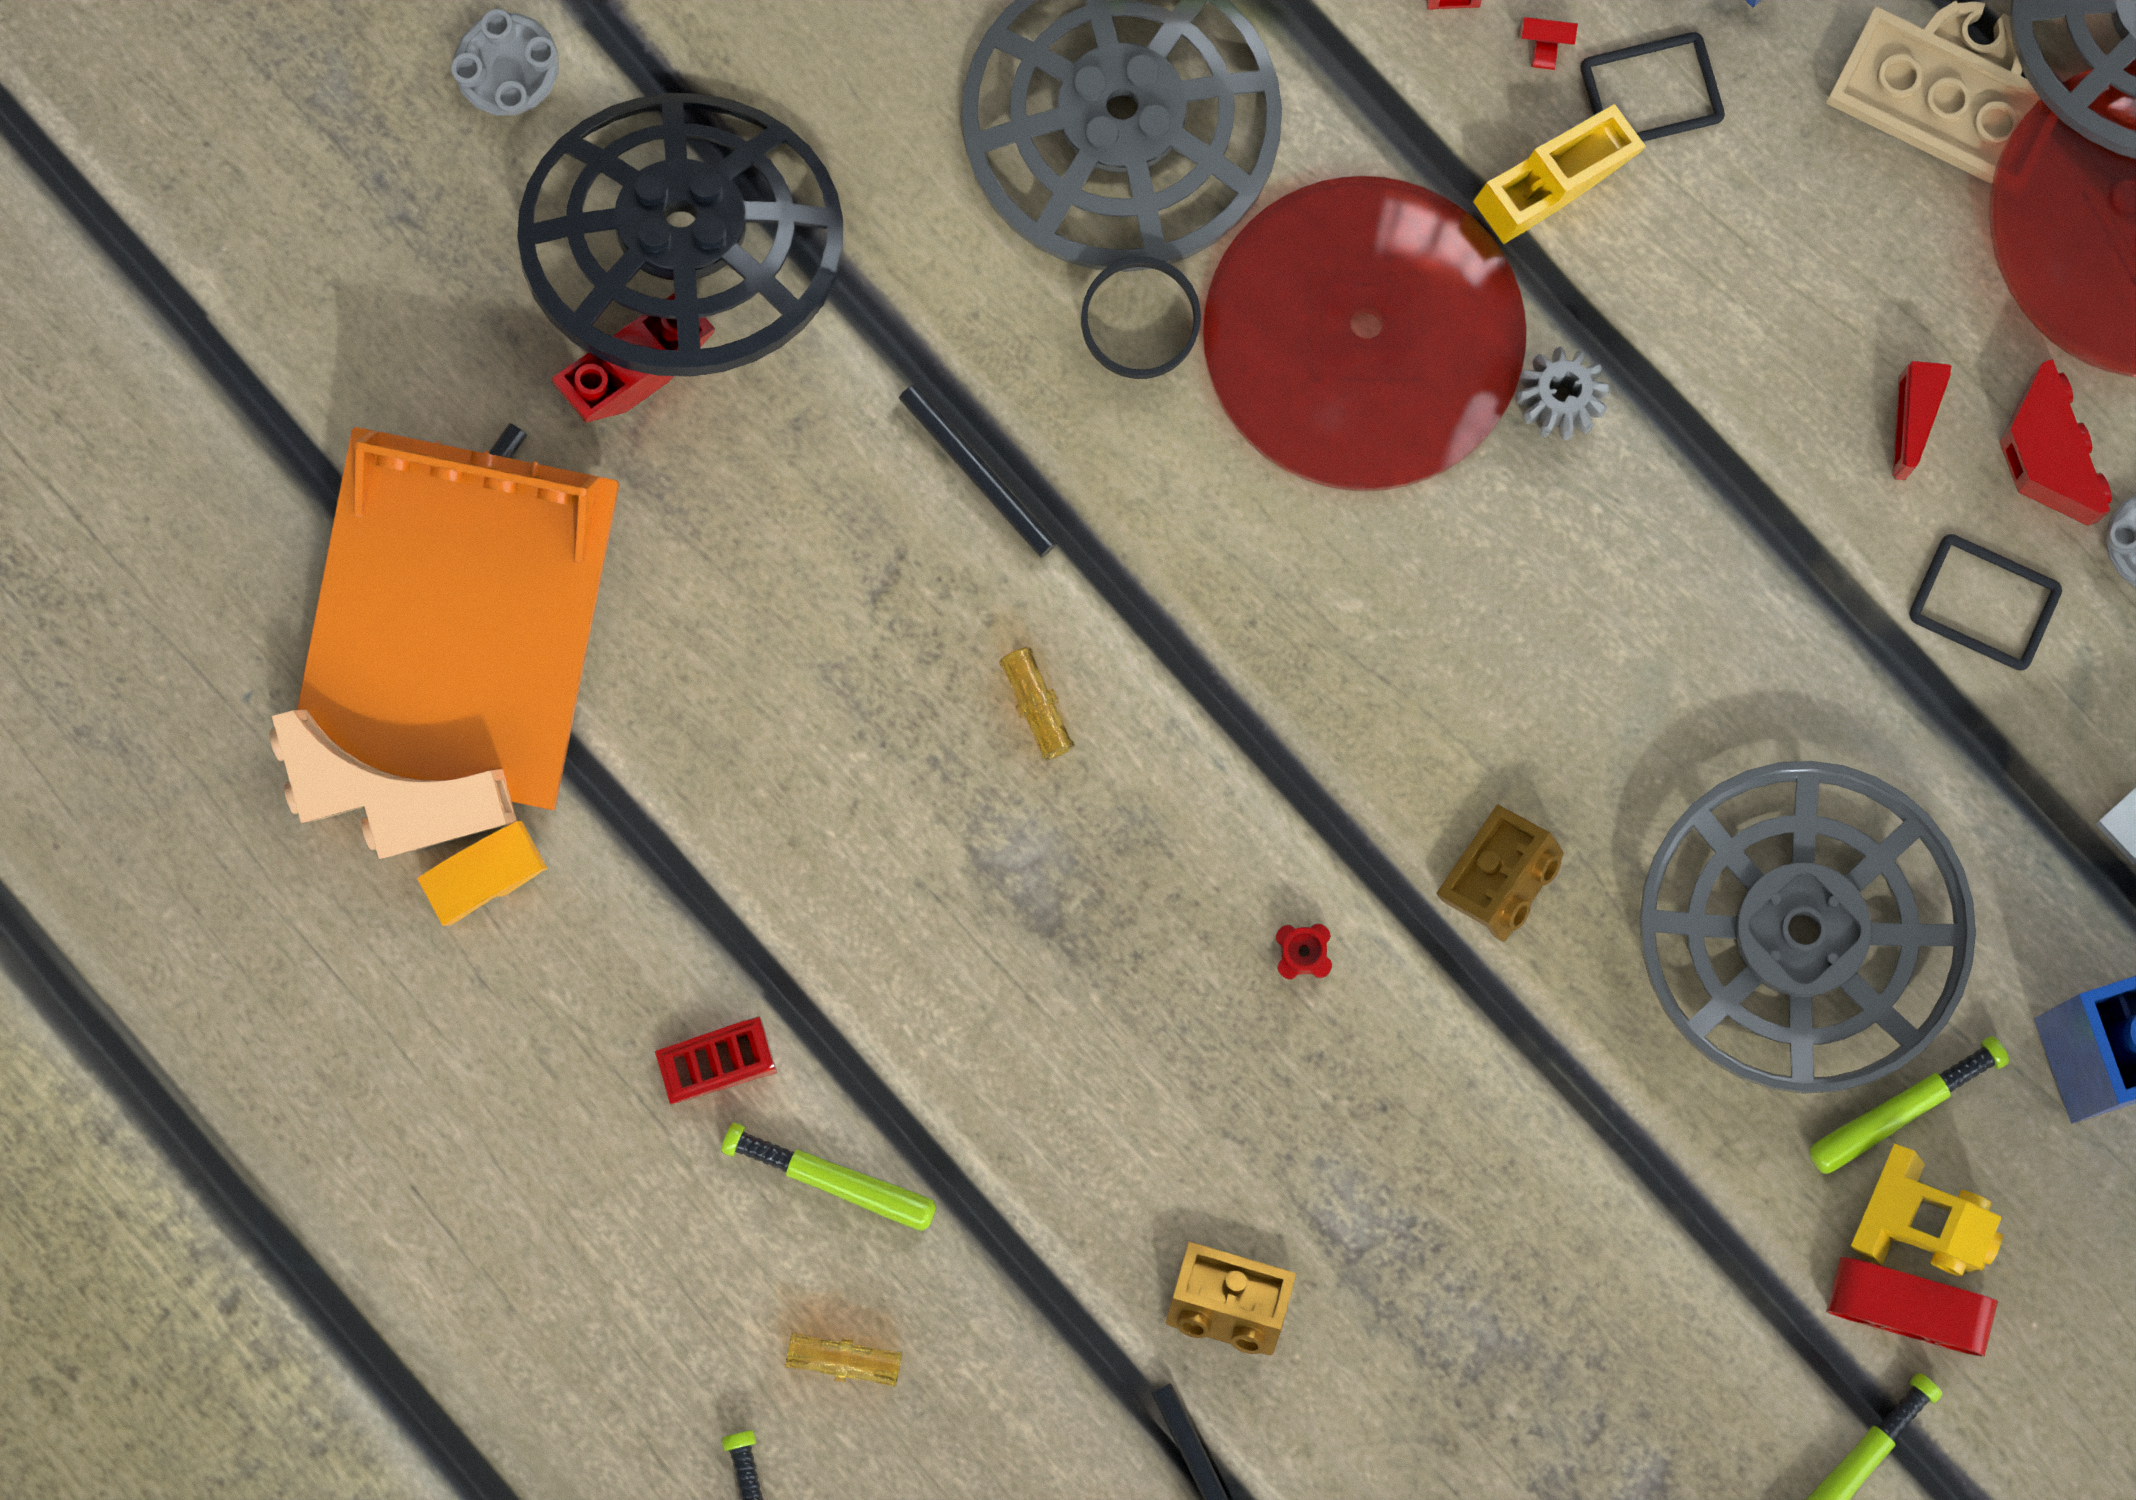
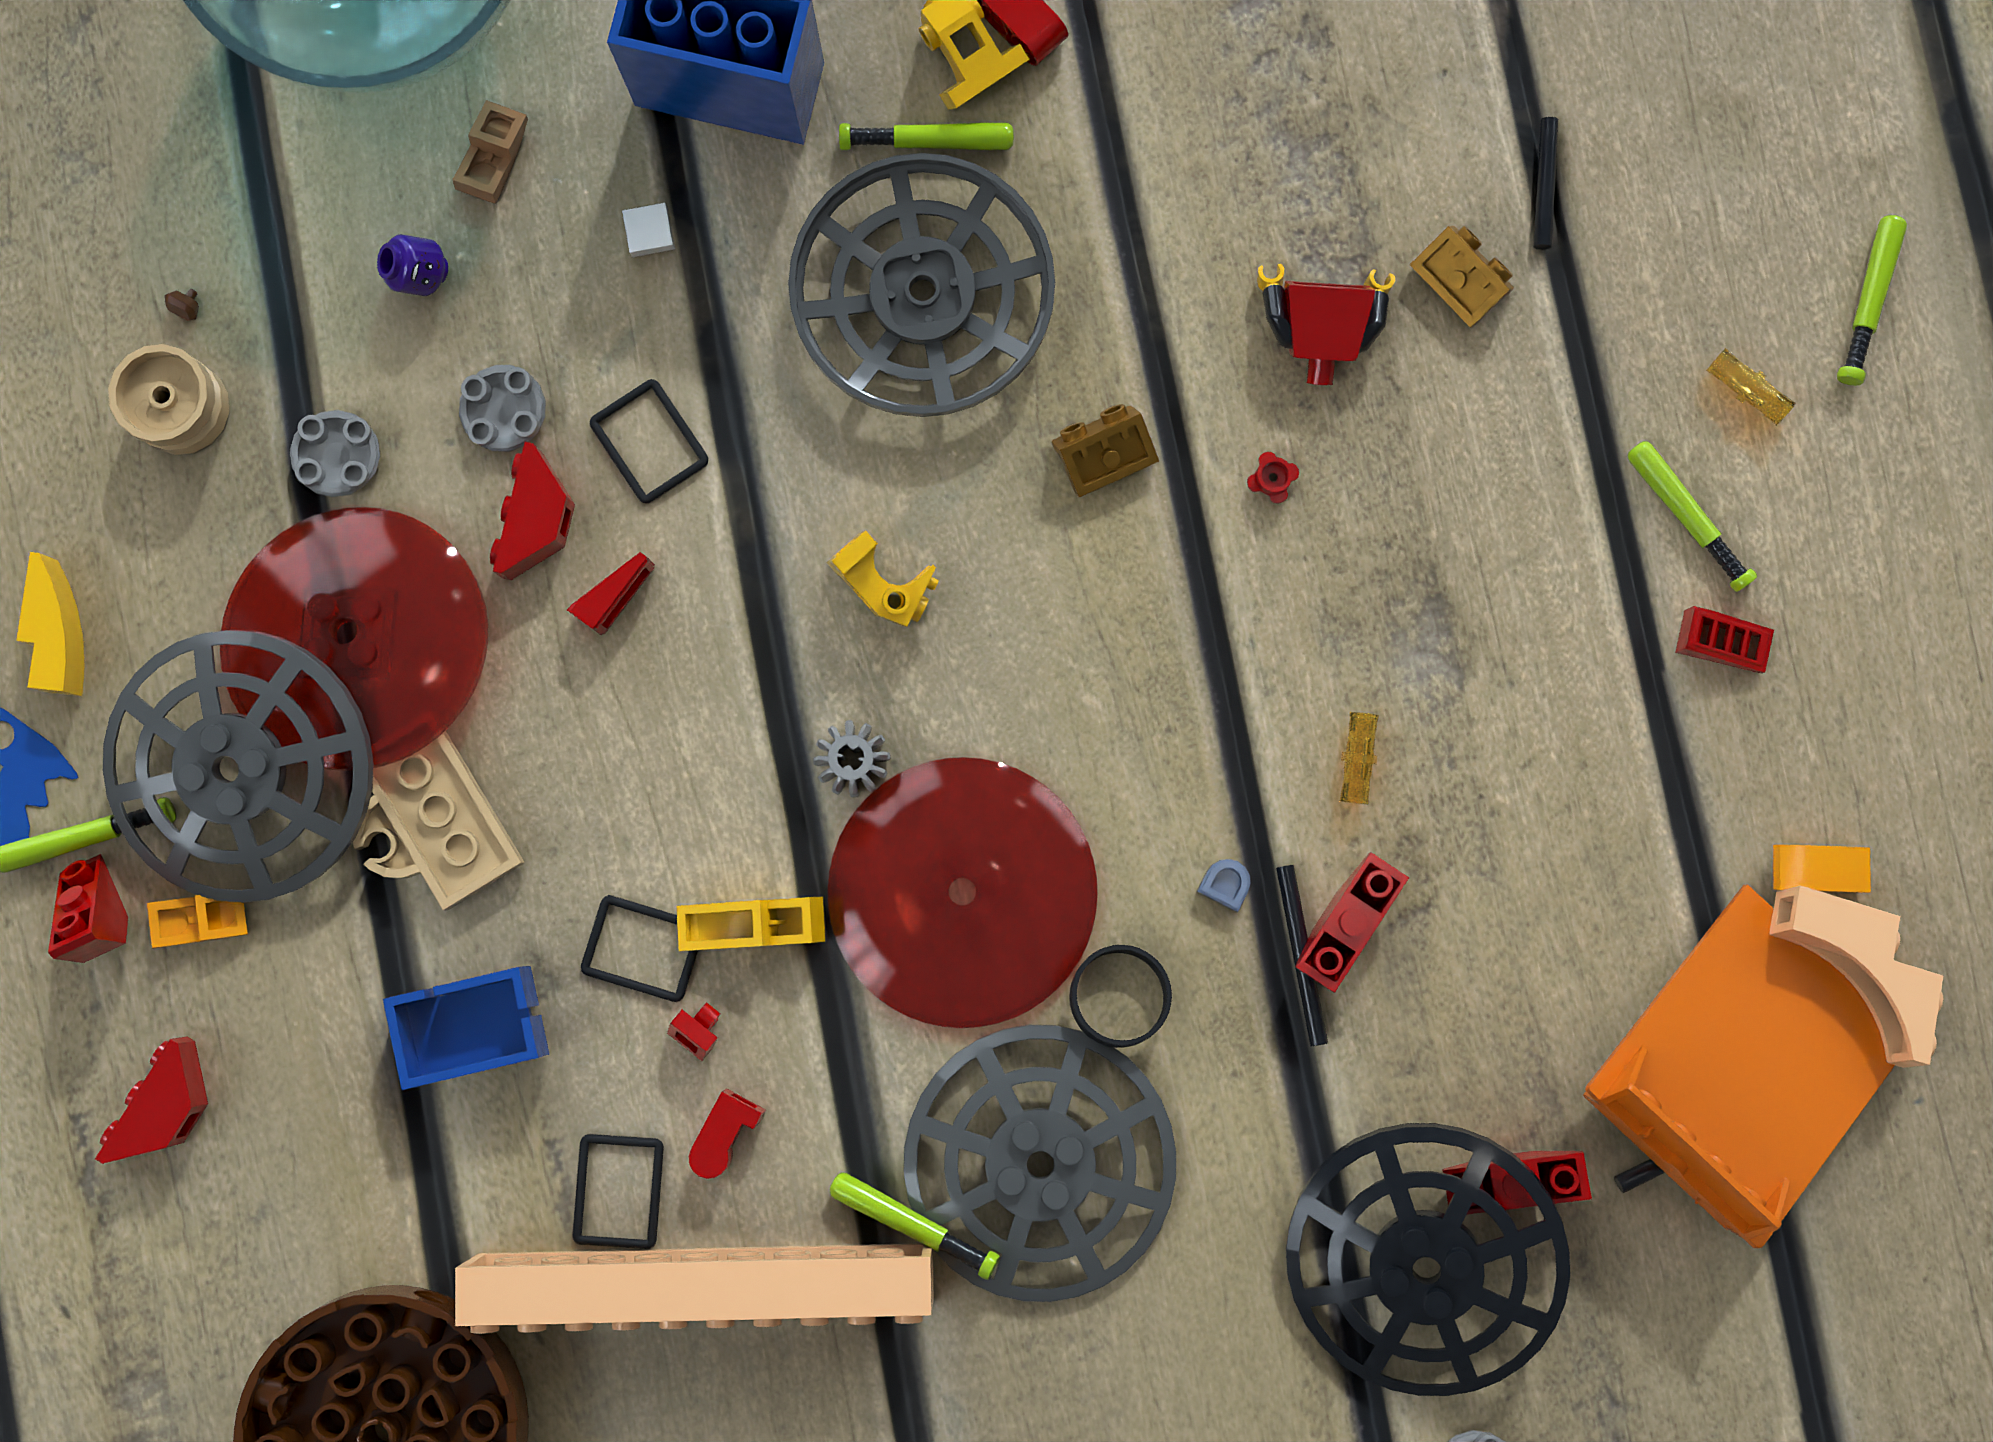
camera: 150 degrees left, 5 degrees up
(951, 518) = (1350, 921): none -> red slope
(1098, 497) = (1226, 883): none -> sand blue tile
(1352, 1149) = (1325, 319): none -> red torso
(1681, 580) = (856, 567): none -> yellow tile

